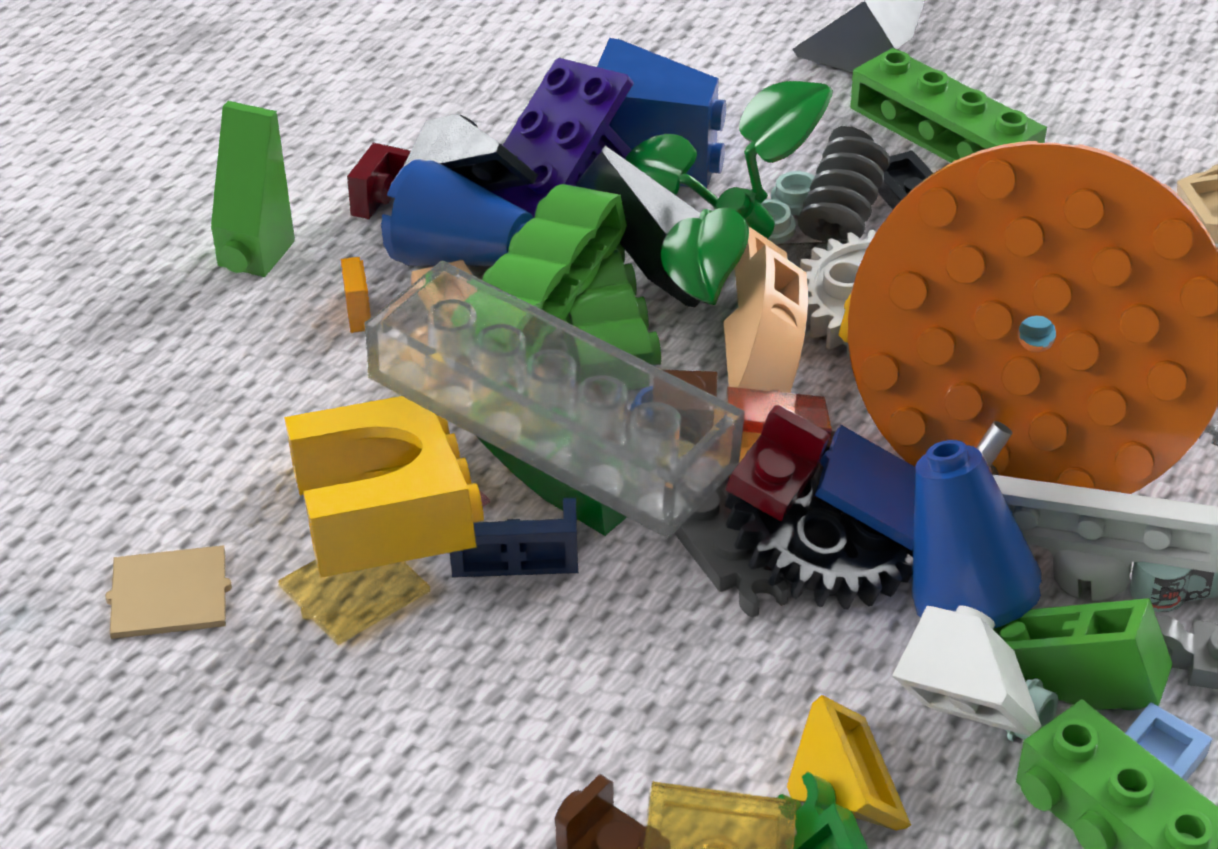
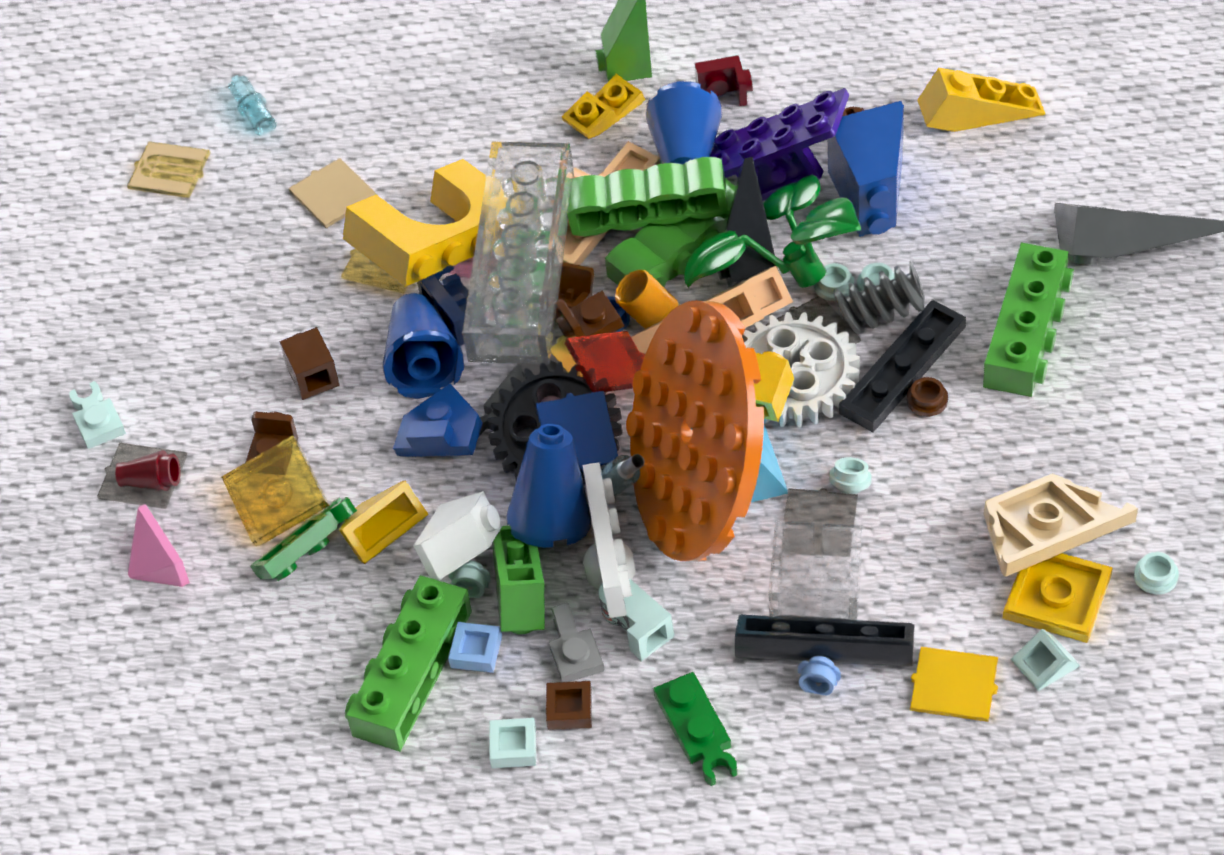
camera: 65 degrees right, 10 degrees up
(306, 288) = (598, 112): none -> yellow slope
(355, 293) = (604, 130): light orange tile -> none
(471, 153) = (742, 104): slope -> none
(497, 722) = (309, 363): none -> reddish brown brick
(571, 587) = (420, 349): none -> blue cone
(590, 30) = (970, 101): none -> yellow slope
(680, 332) = (644, 298): none -> light orange piece
(728, 633) = (439, 427): none -> blue plate
(779, 463) = (541, 377): dark red bracket -> none

